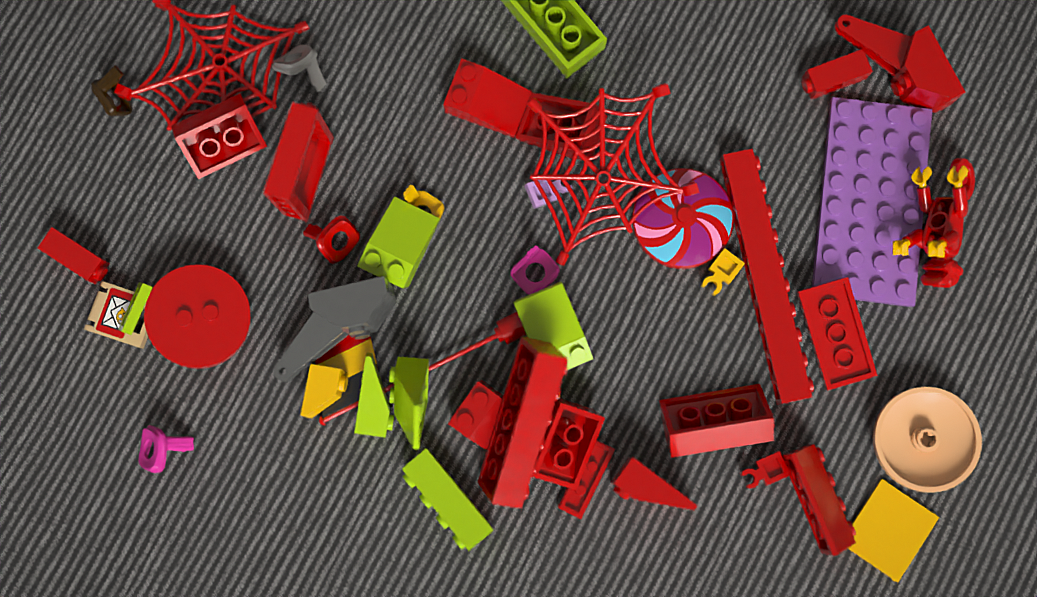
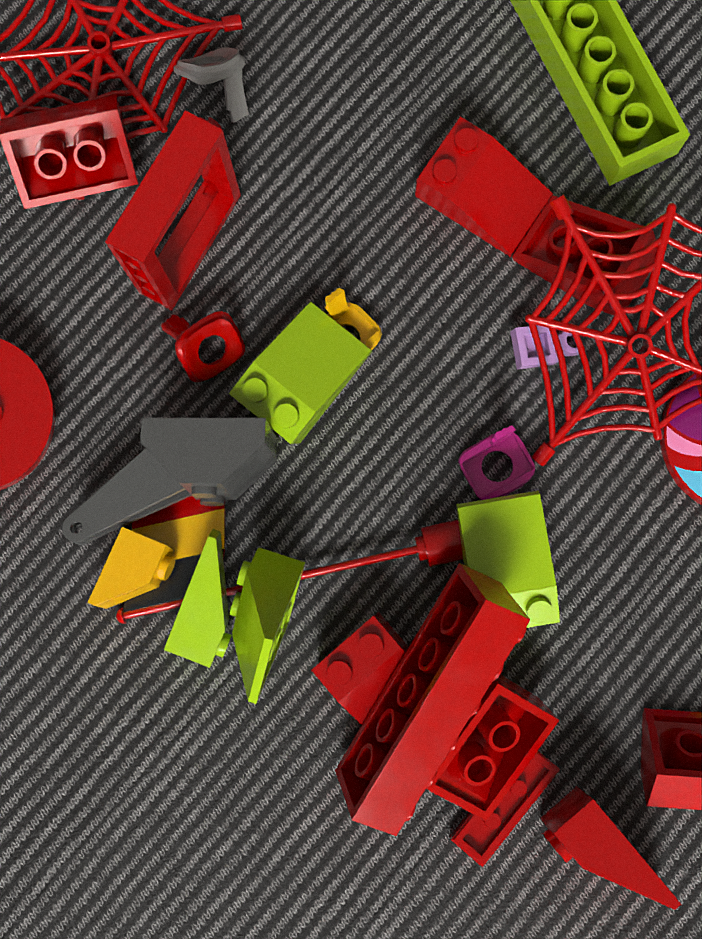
camera: 15 degrees right, 0 degrees up
(447, 499) = (284, 790): lime brick -> none

